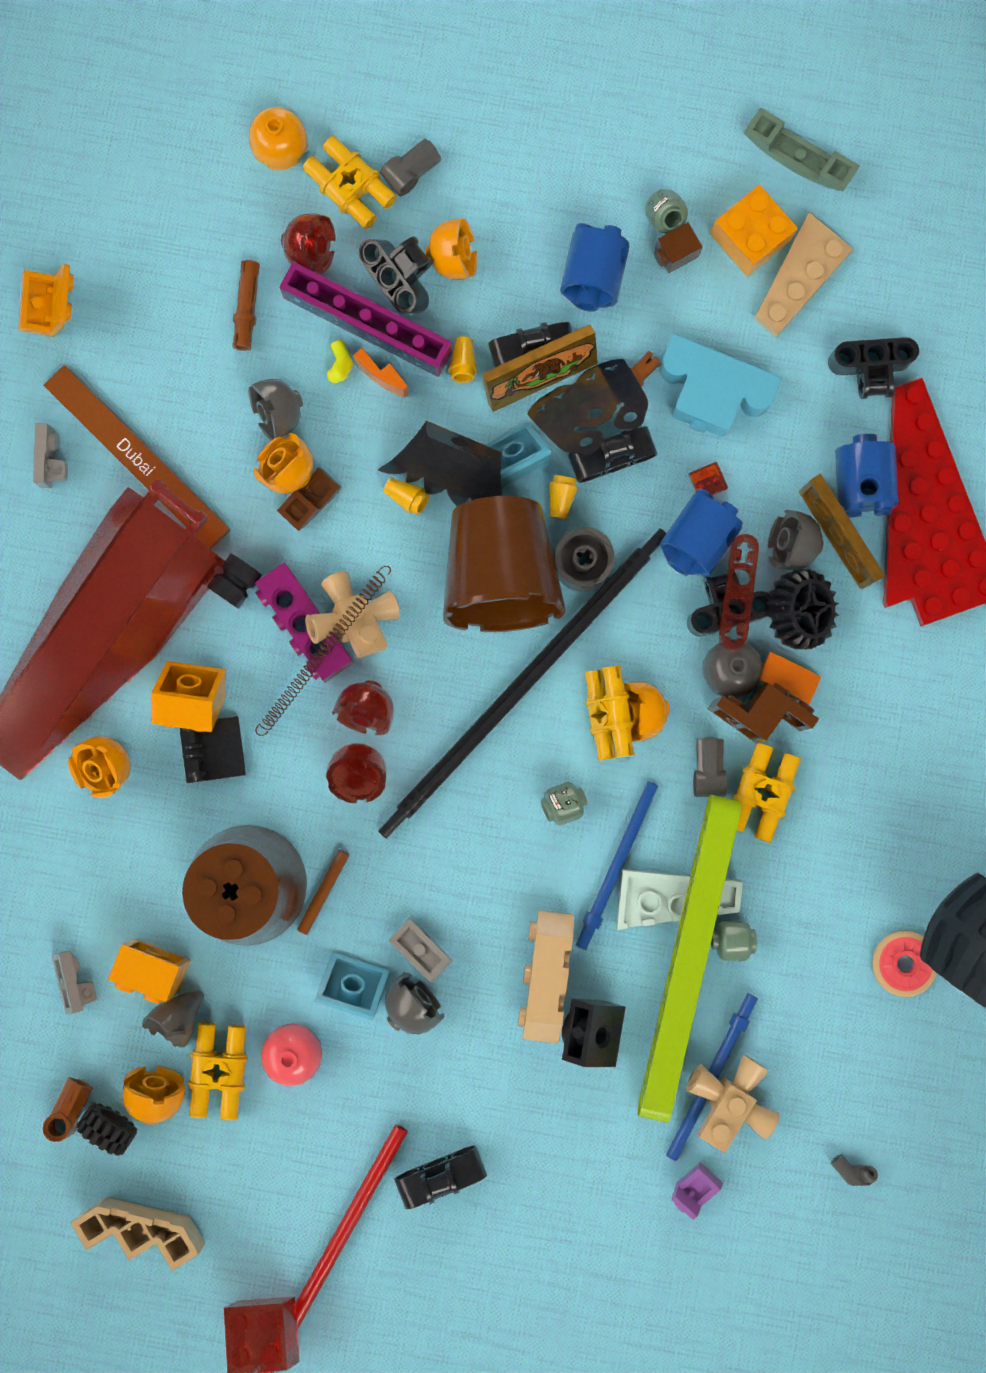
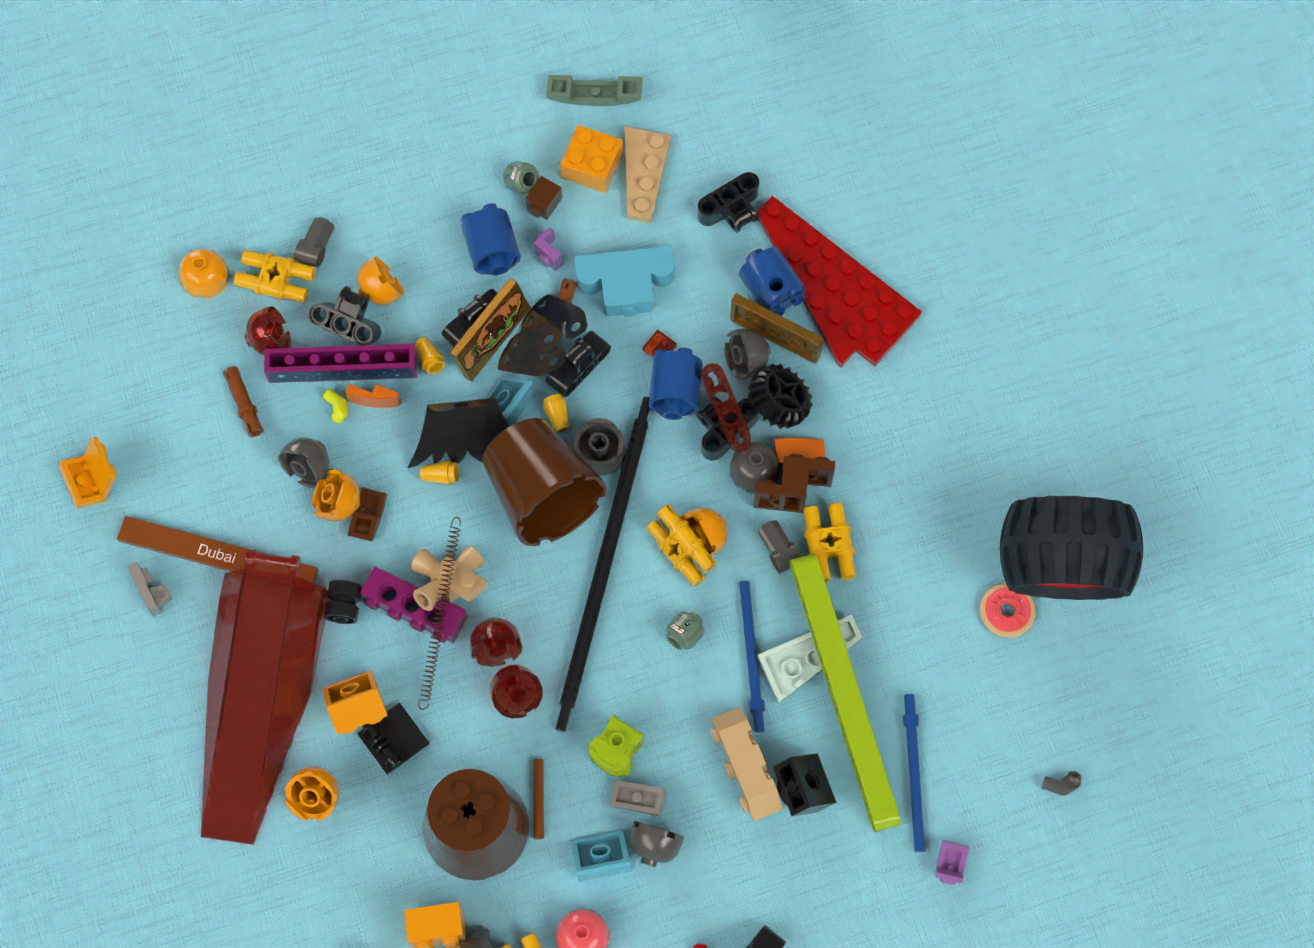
camera: 20 degrees left, 15 degrees down
(425, 888) = (616, 747): none -> lime piece
(647, 314) = (546, 253): none -> medium lavender bracket
(732, 1103) = (939, 779): tan brick -> none
(734, 941) = (870, 661): sand green head -> none

